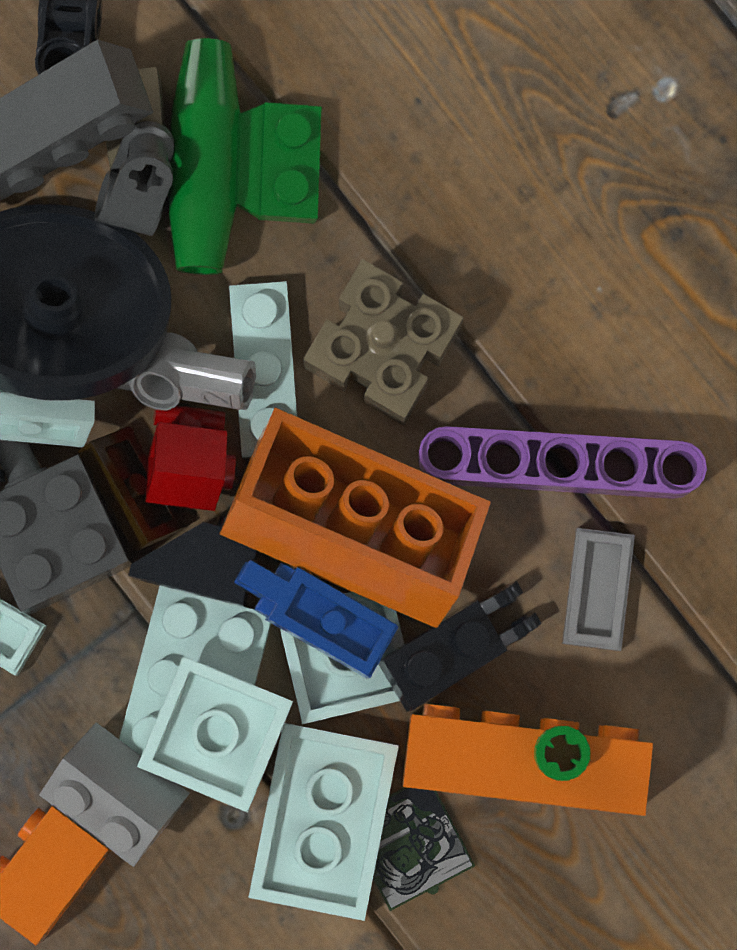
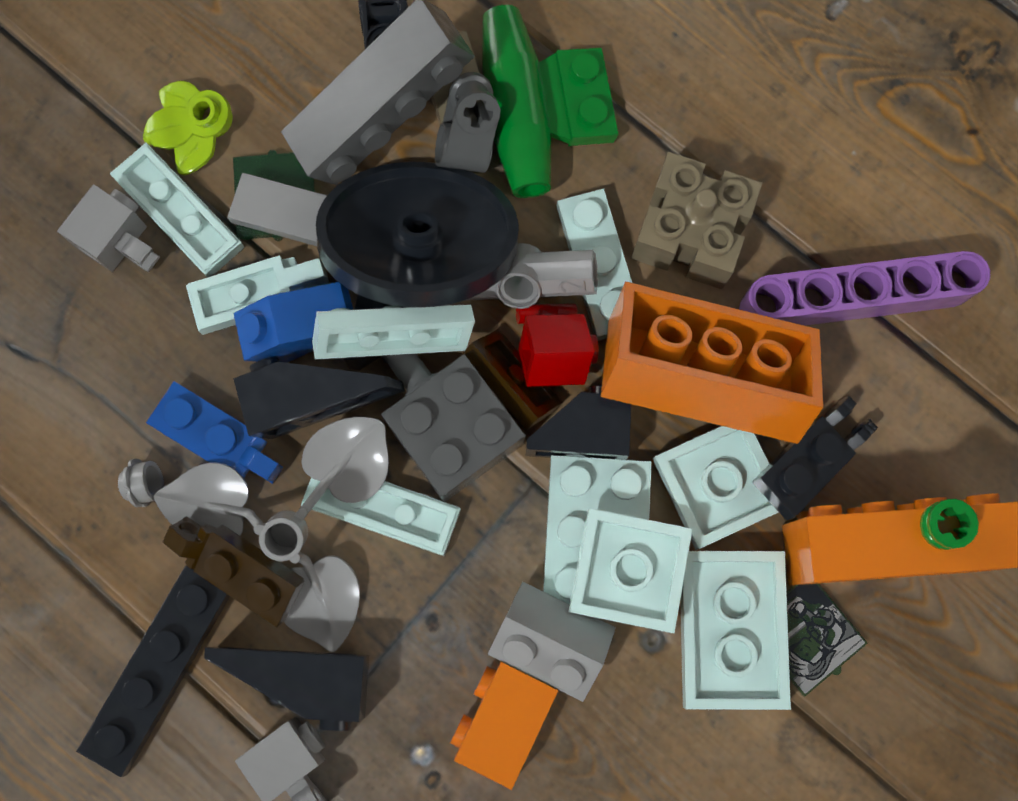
camera: 15 degrees left, 5 degrees down
(319, 615) = (697, 451): blue hinge -> none
(598, 589) = (914, 391): light grey tile -> none

